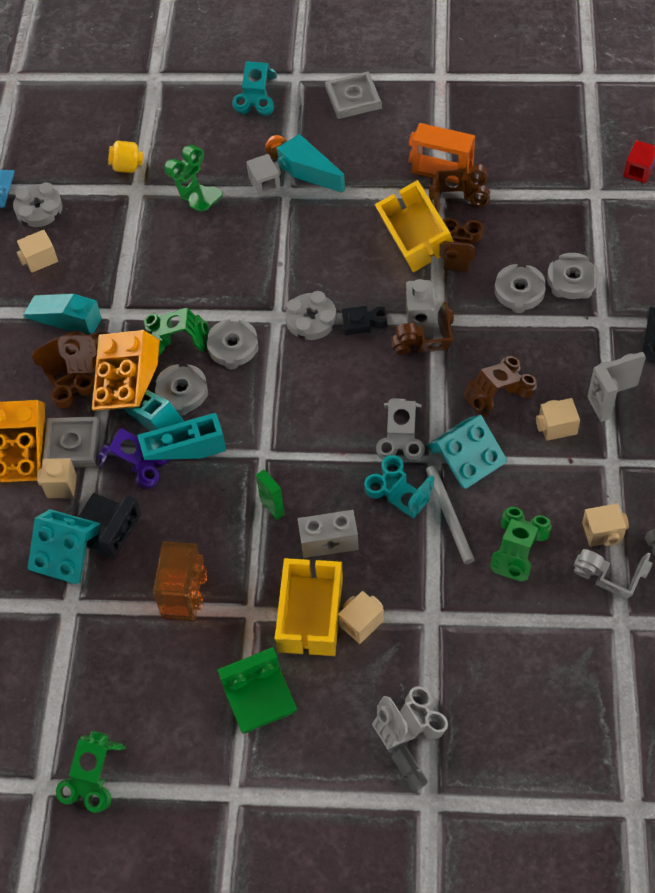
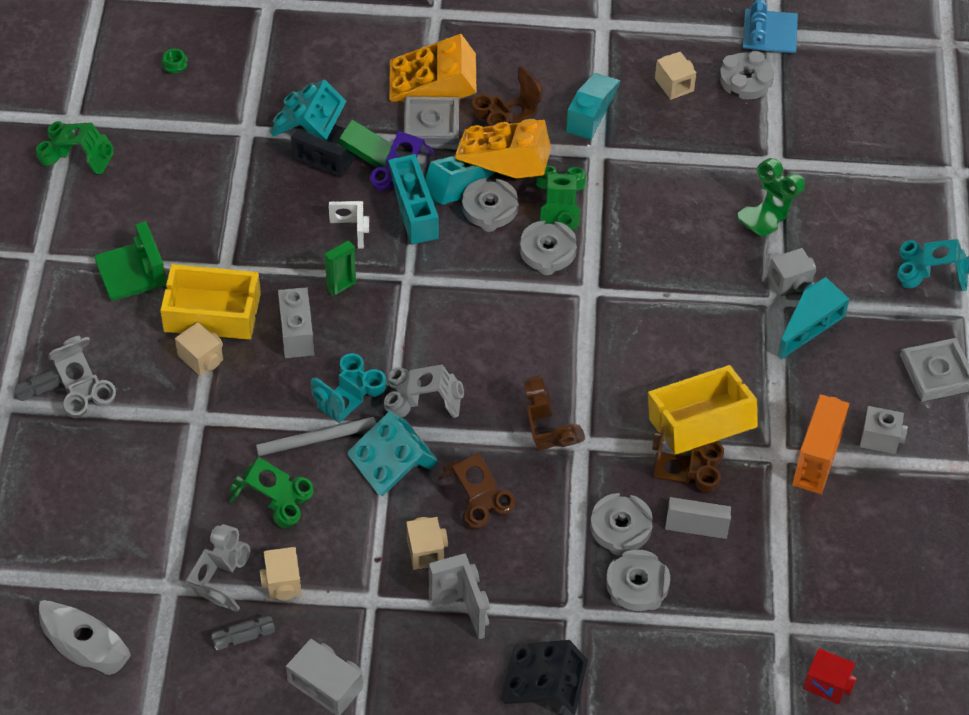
camera: 85 degrees right, 5 degrees down
(57, 478) = (382, 106): tan brick -> none
(79, 351) = (552, 112): reddish brown piece -> none
(107, 489) = (365, 144): none -> green tile
(125, 156) = (815, 143): yellow head -> none
(179, 580) = (250, 196): clear orange brick -> none
(203, 490) = (356, 216): none -> white bracket
(272, 144) = (842, 282): orange plate -> none
(305, 326) = (590, 305): light grey plate -> none
(358, 319) = (580, 365): black plate -> none
(414, 117) = (883, 430): none -> light grey brick
(420, 301) = (585, 406): light grey torso -> none
(470, 184) = (764, 439): reddish brown piece -> none
(507, 239) = (698, 518): none -> light grey panel

